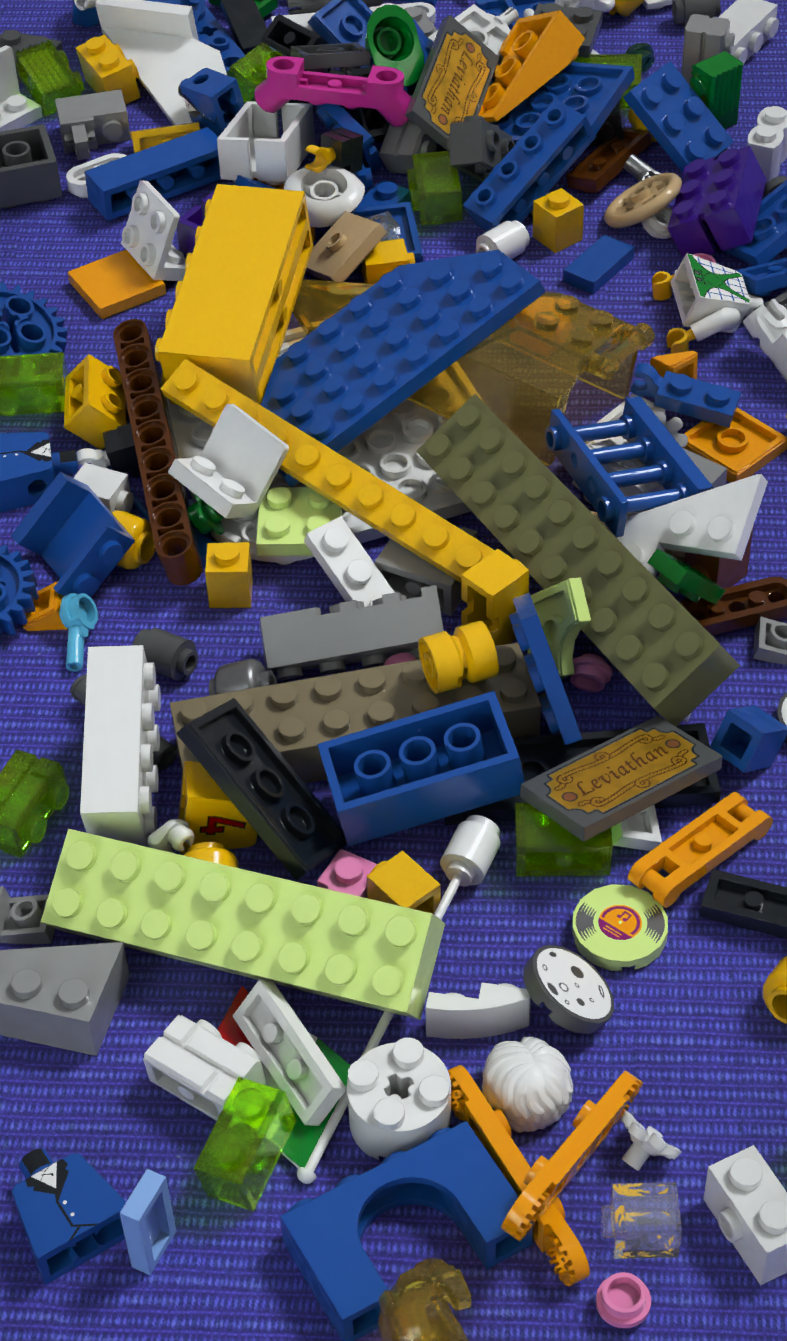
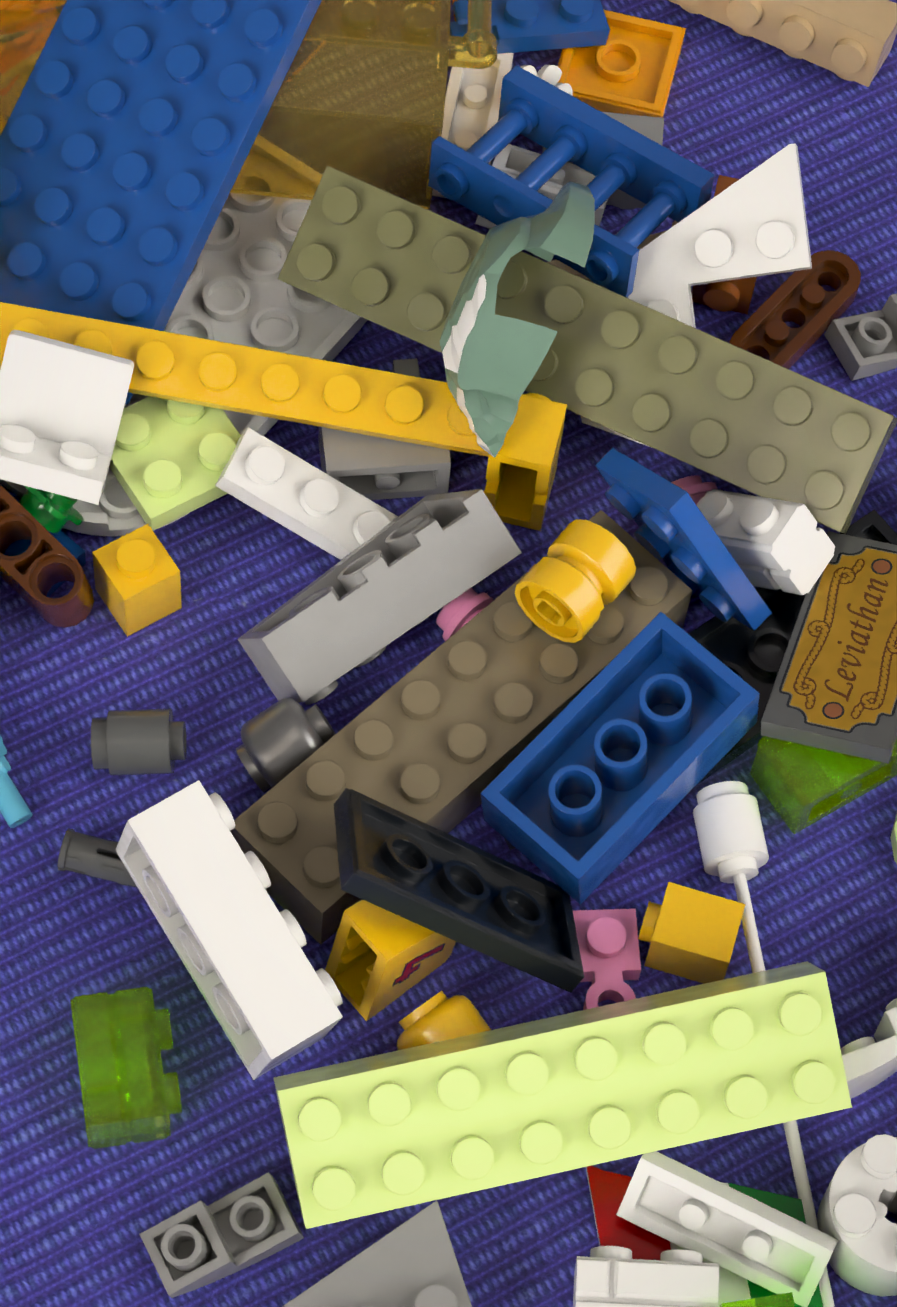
camera: 40 degrees left, 15 degrees up
(171, 836) = (371, 1009): white arm -> none
(494, 509) = (493, 355): none -> sand green animal
(562, 615) = (644, 433): yellowish green tile -> none
(604, 698) = (769, 539): none -> white brick
(684, 578) = (741, 318): green plate -> none

